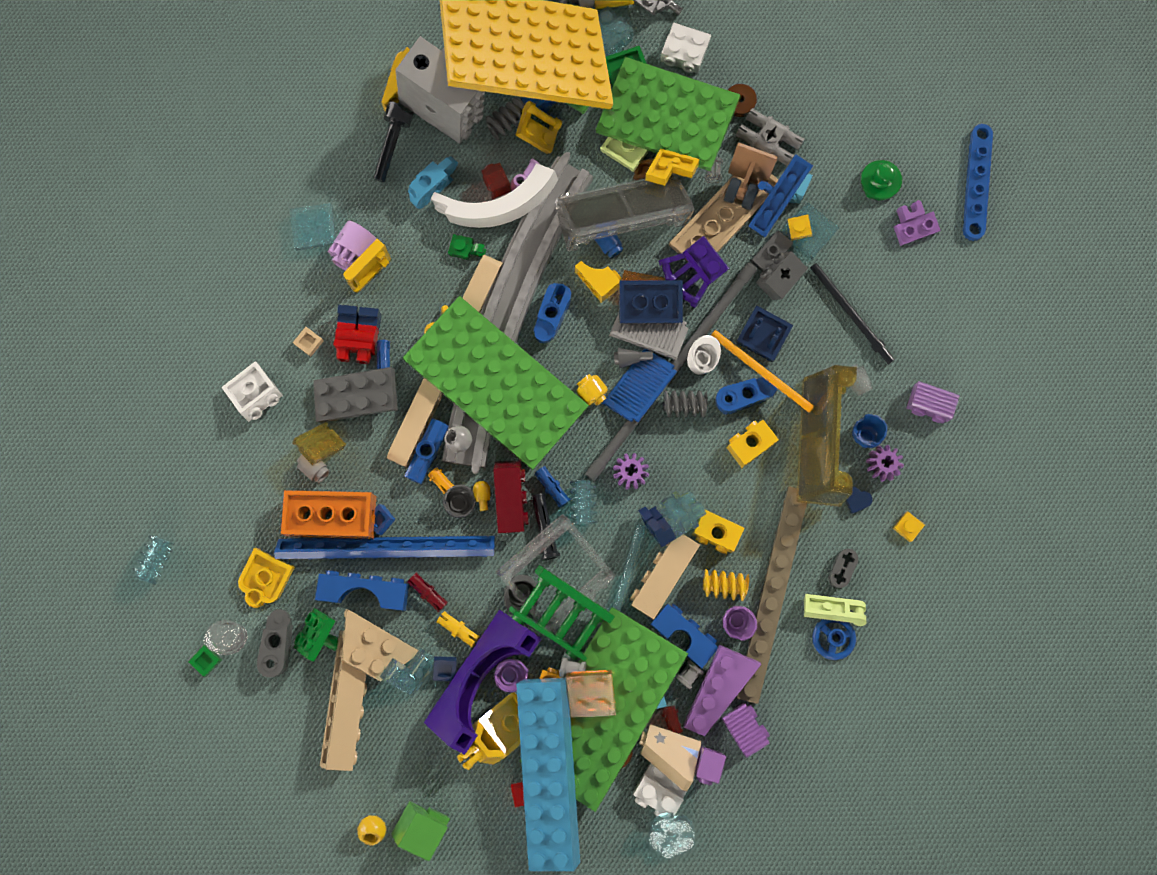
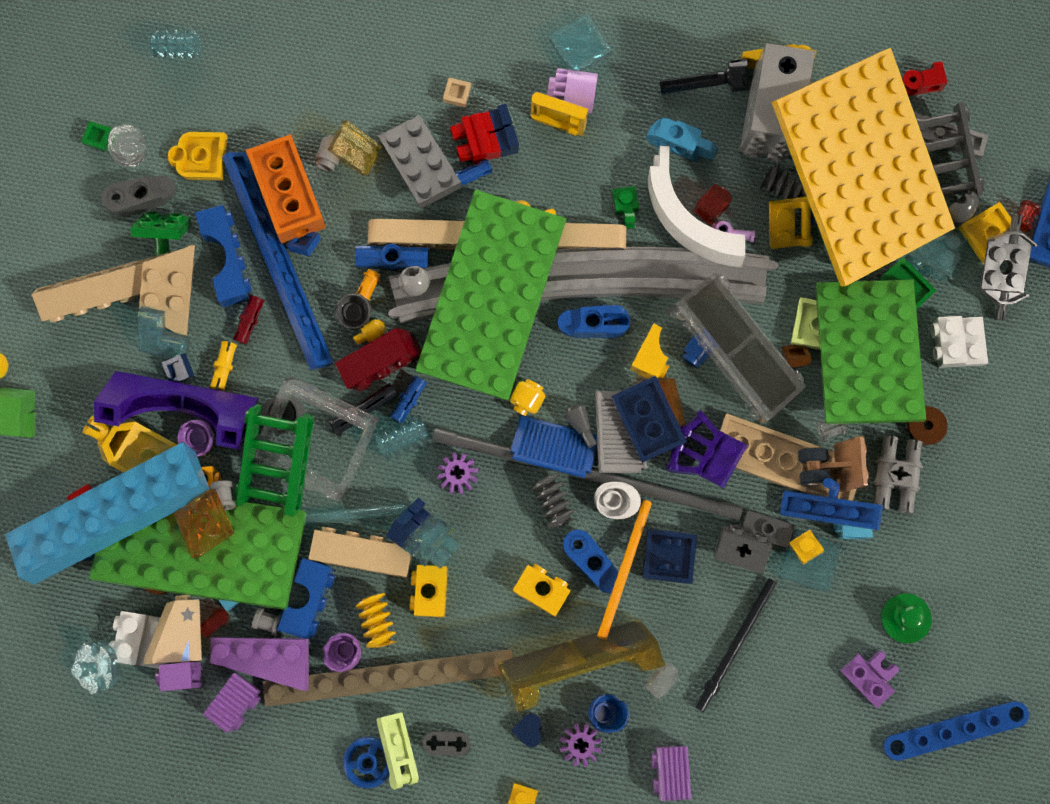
camera: 65 degrees right, 0 degrees up
(252, 392) = (381, 61): white plate -> none
(670, 162) = (811, 373): yellow plate -> none

